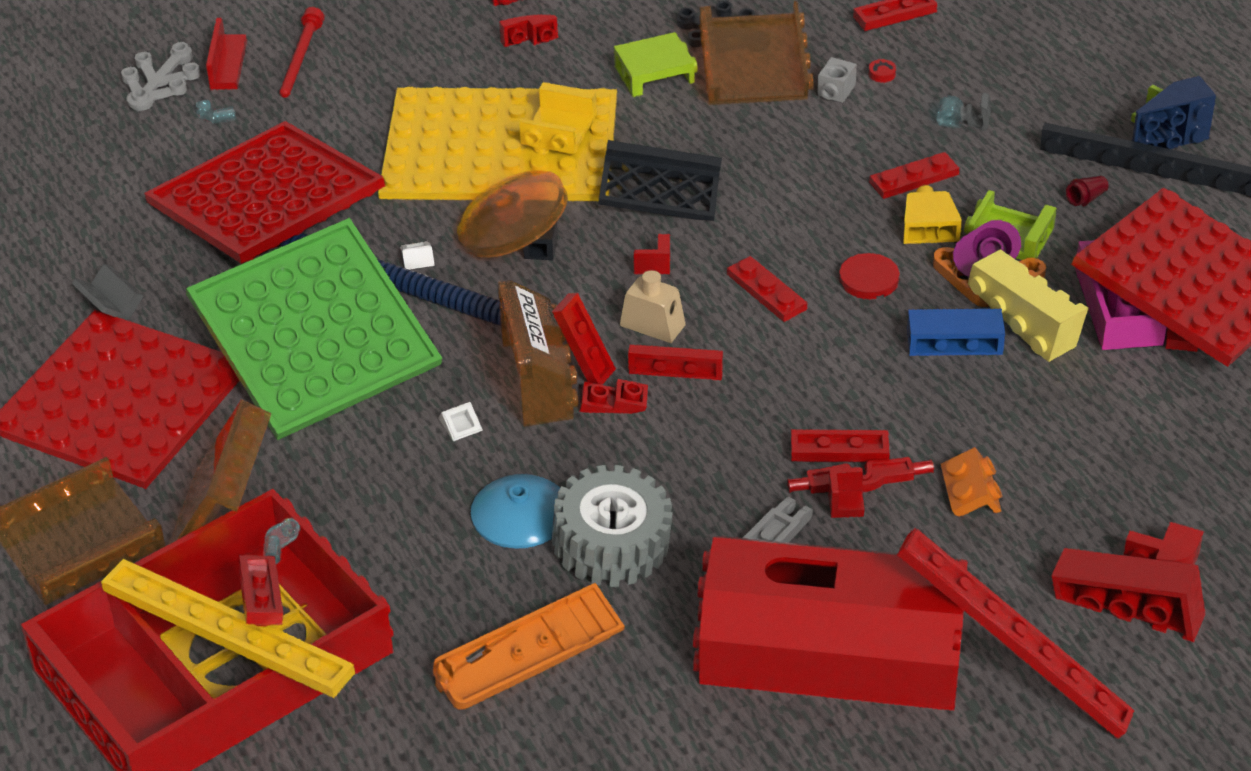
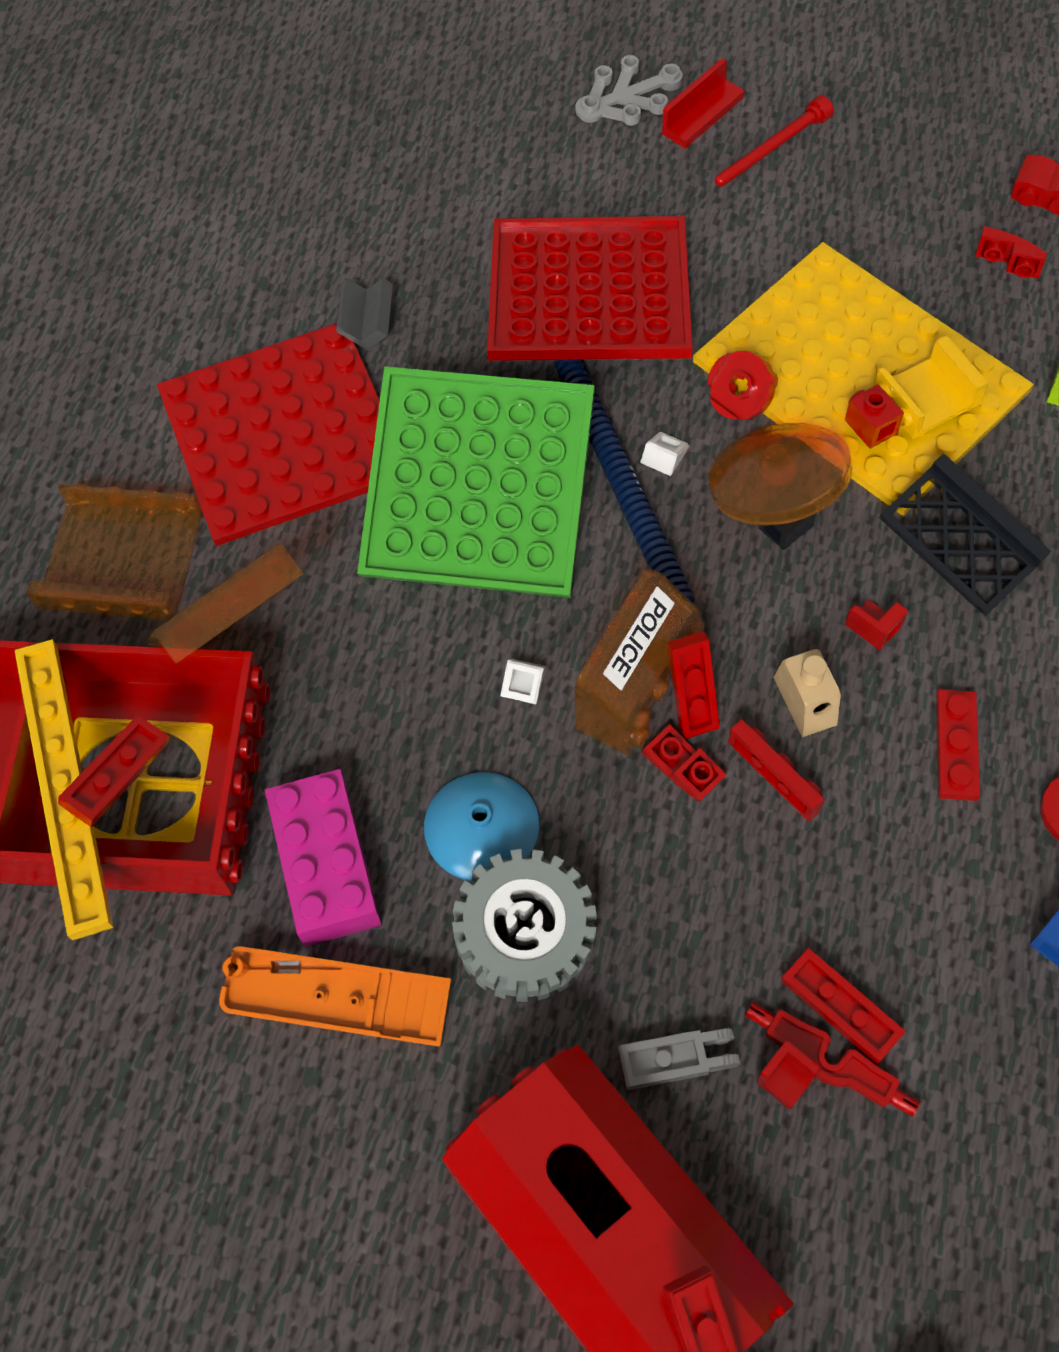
camera: 45 degrees right, 20 degrees up
(214, 115) = (634, 165): clear light blue arm -> none
(279, 537) = (193, 717): clear light blue arm -> none
(421, 173) = (760, 384): none -> red plate
(437, 584) = (322, 858): none -> dark pink brick
(539, 150) = (873, 416): none -> red brick
(971, 483) = (933, 1172): orange bracket -> none

